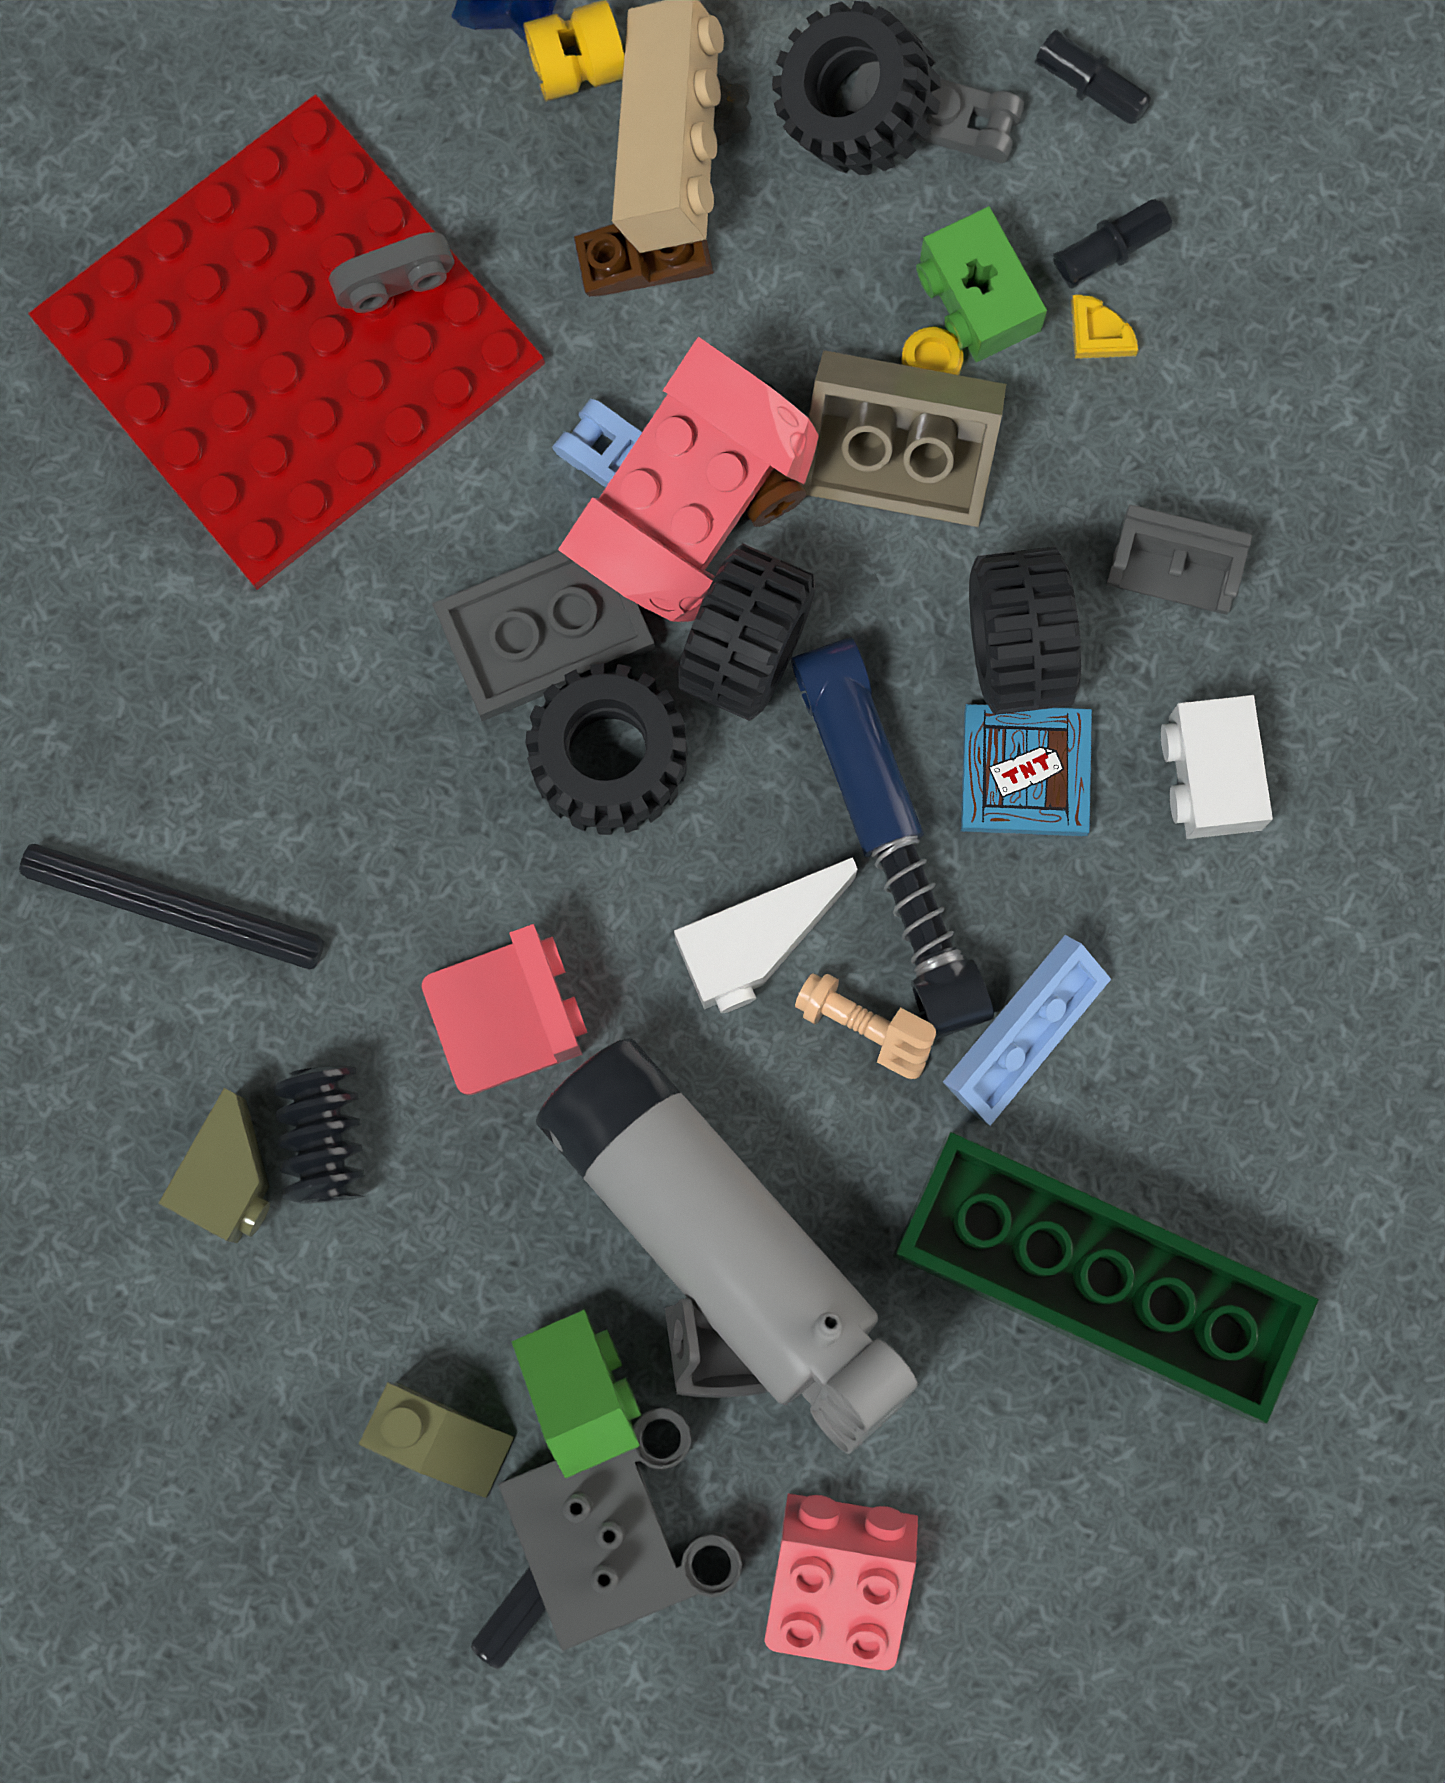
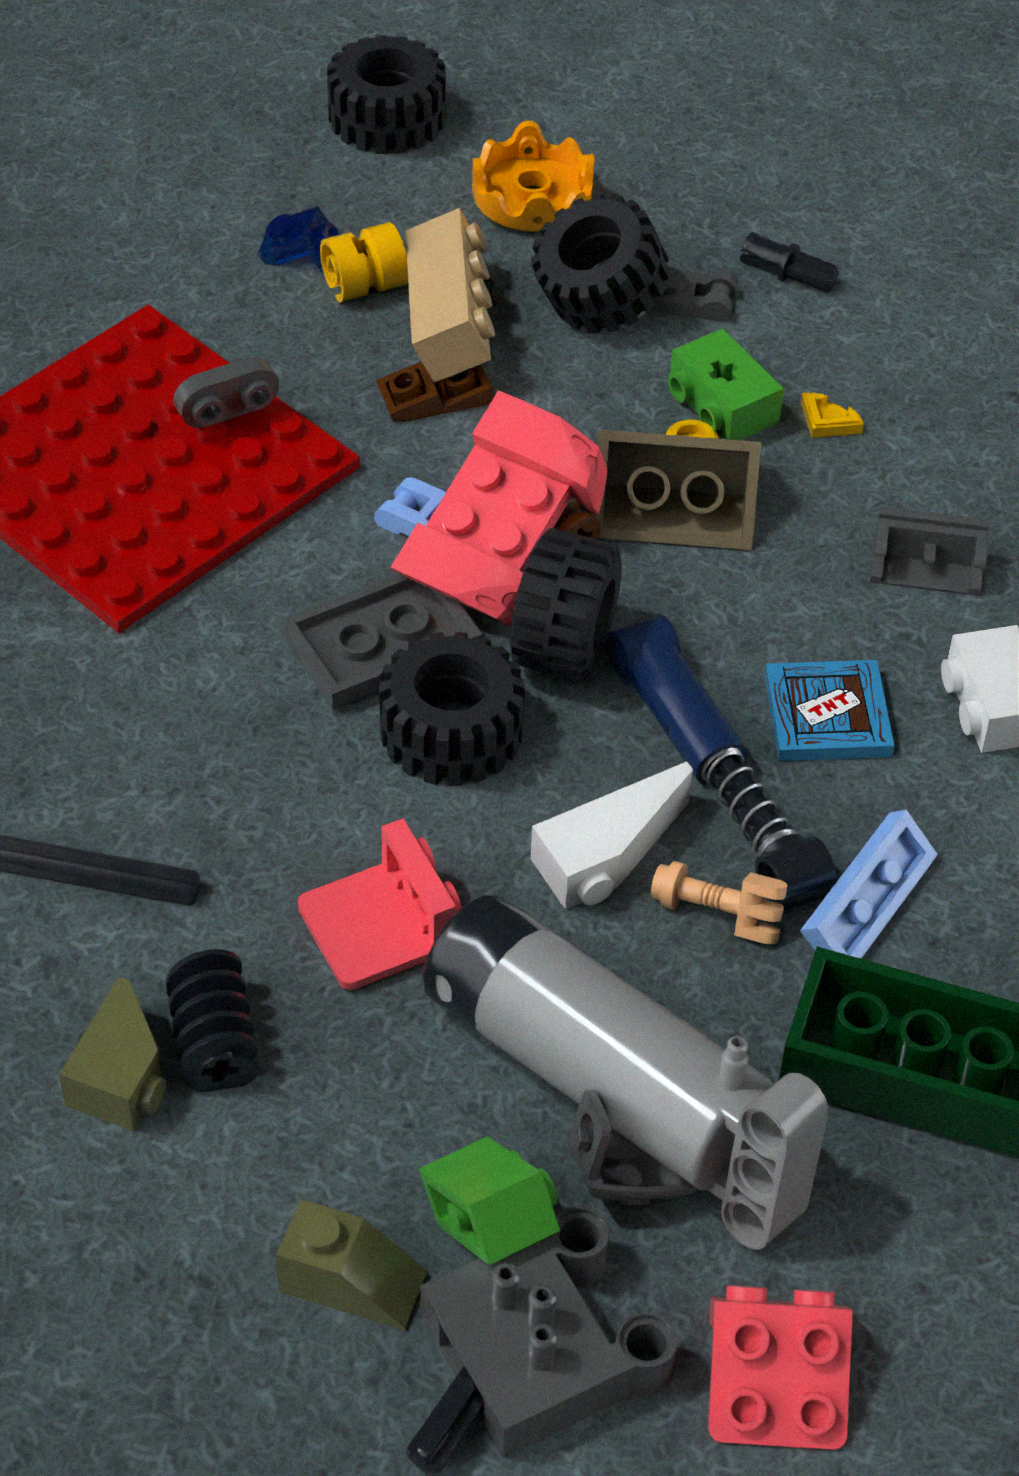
camera: 10 degrees left, 30 degrees down
(1025, 630) = (809, 587): black tyre -> none
(1112, 242) = (826, 359): black axle -> none

